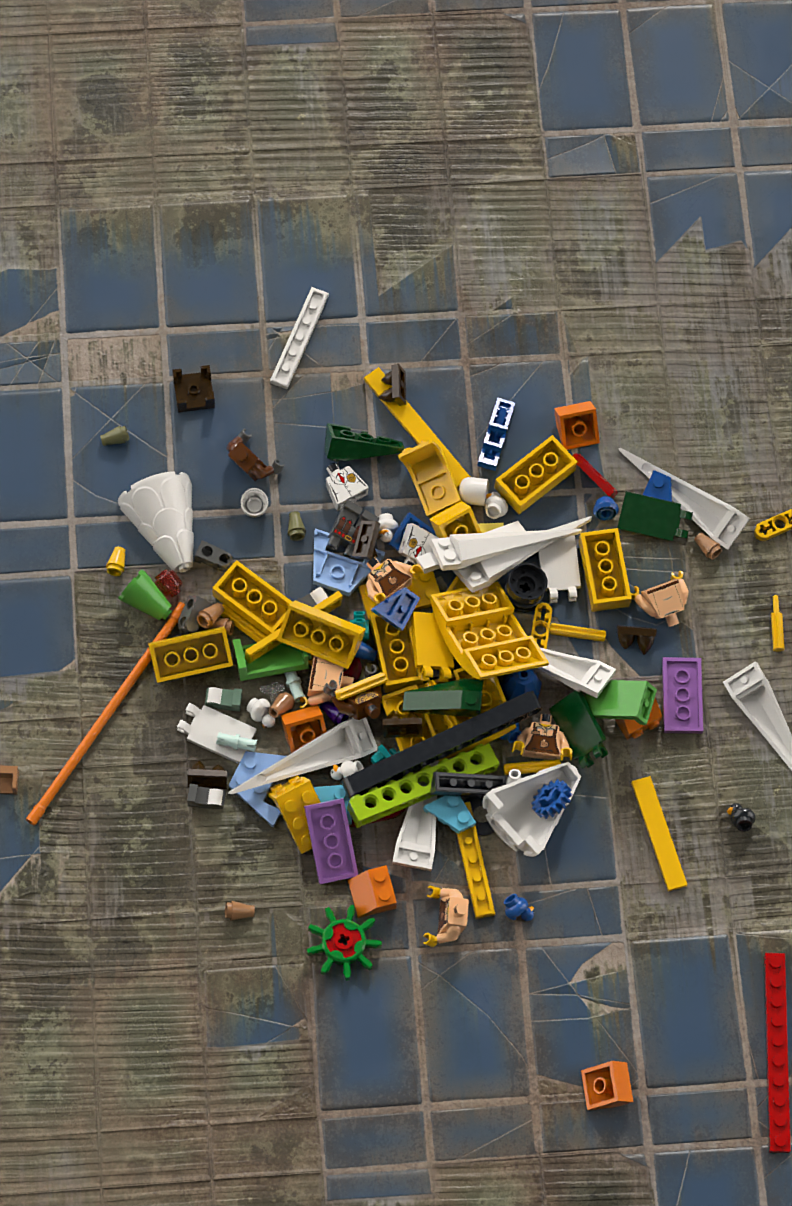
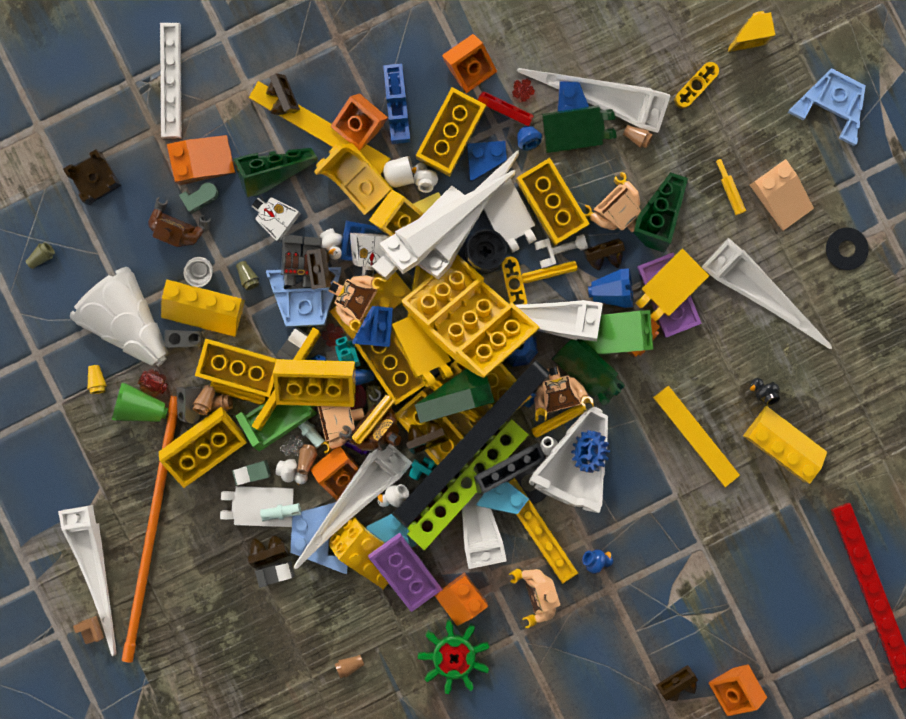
camera: 15 degrees left, 20 degrees up
(42, 695) = (85, 541): none -> white plate
(242, 536) = (201, 308): none -> yellow slope
(283, 444) = (200, 198): none -> sand green leg
(297, 411) = (200, 159): none -> orange slope
(350, 607) = (332, 334): none -> clear red plant
(455, 434) = (359, 121): none -> orange slope
(558, 510) = (485, 157): none -> blue wing
(559, 1055) = (679, 681): none -> dark brown tile
(616, 617) = (579, 243): none -> white bar
(617, 467) = (523, 90): none -> clear red plant
(632, 665) = (613, 289): none -> blue cone
(689, 684) = (672, 284): none -> yellow tile
(698, 622) = (659, 217): none -> dark green wedge
(741, 874) = (786, 445): none -> yellow slope

